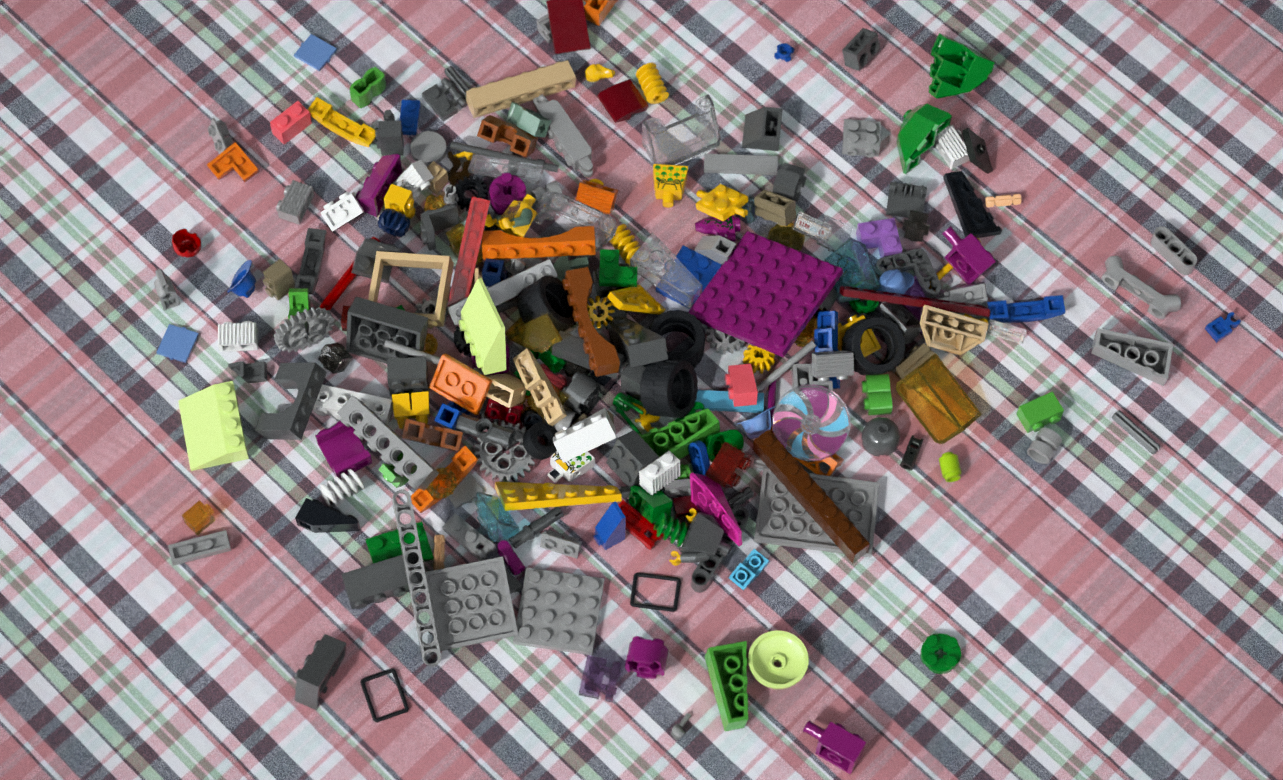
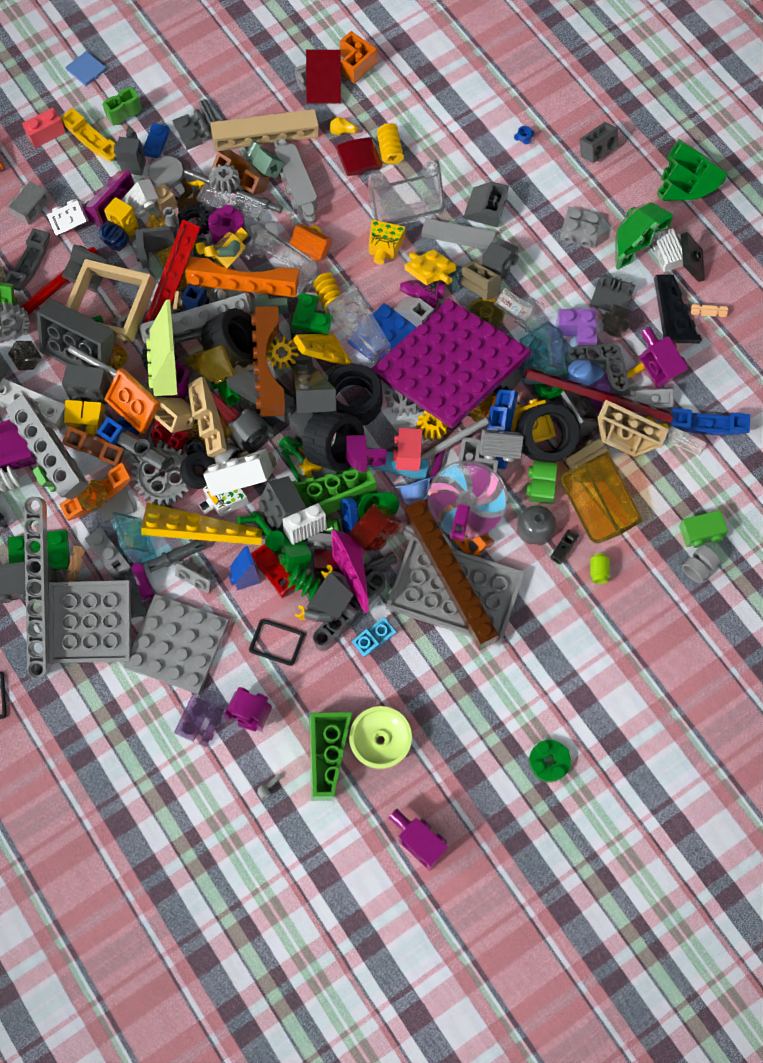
camera: 15 degrees right, 5 degrees up
(495, 146) = (224, 178): none -> light grey gear
(633, 492) = (273, 539): none -> green piece
(700, 400) = (359, 456): none -> magenta brick
(810, 443) = (460, 520): none -> magenta bar

